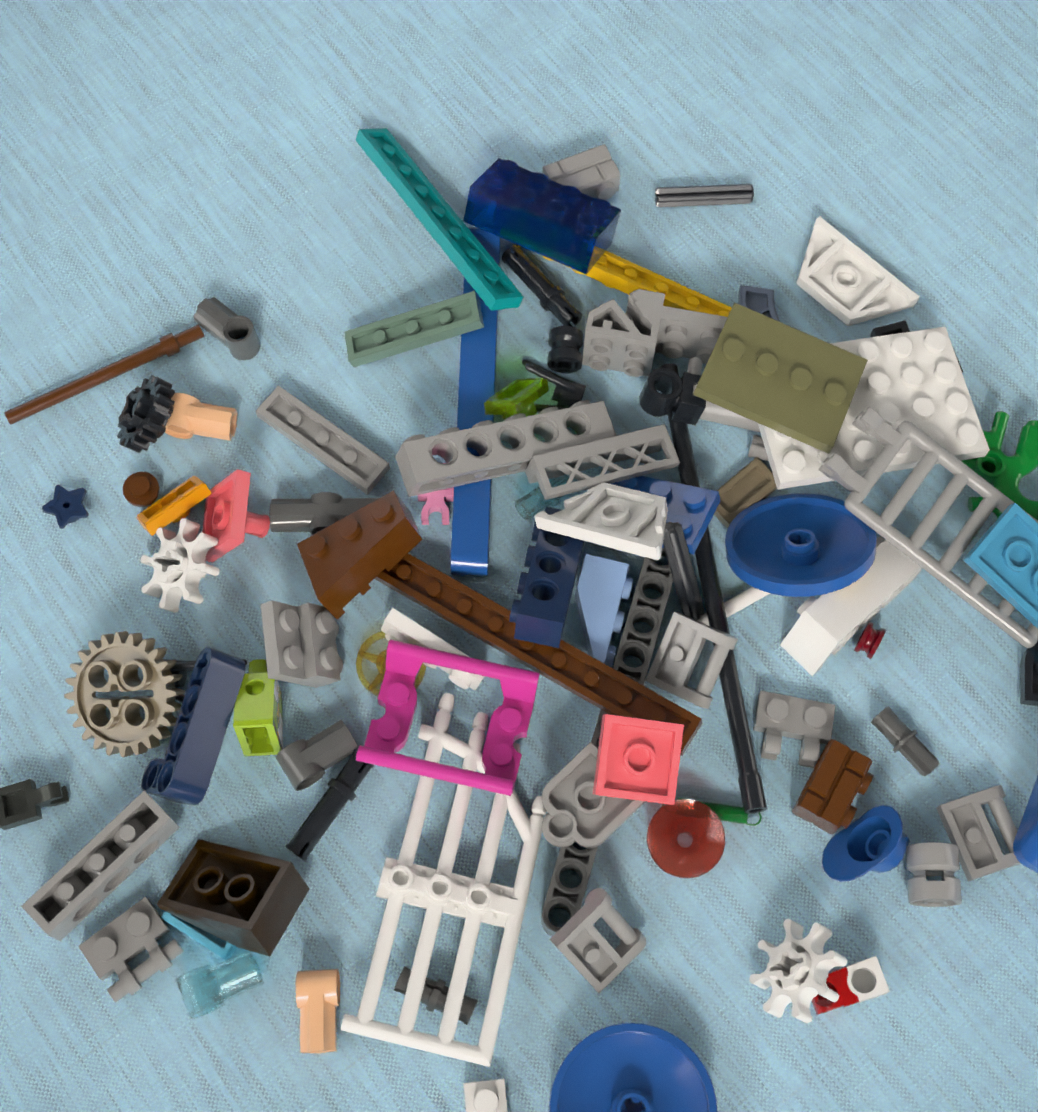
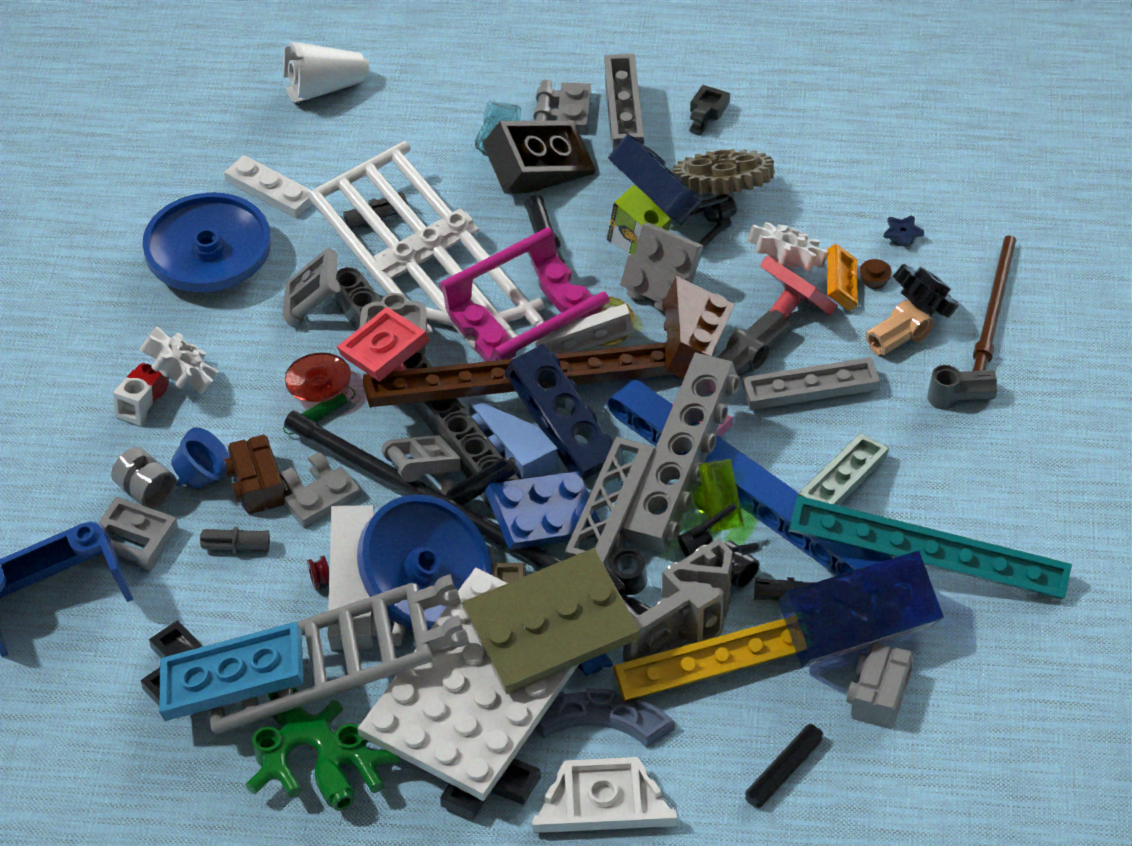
camera: 135 degrees right, 20 degrees down
(307, 760) = (583, 242): dark grey piece -> none
(317, 998) = (435, 160): light nougat piece -> none
(612, 518) = (553, 450): white wing -> none

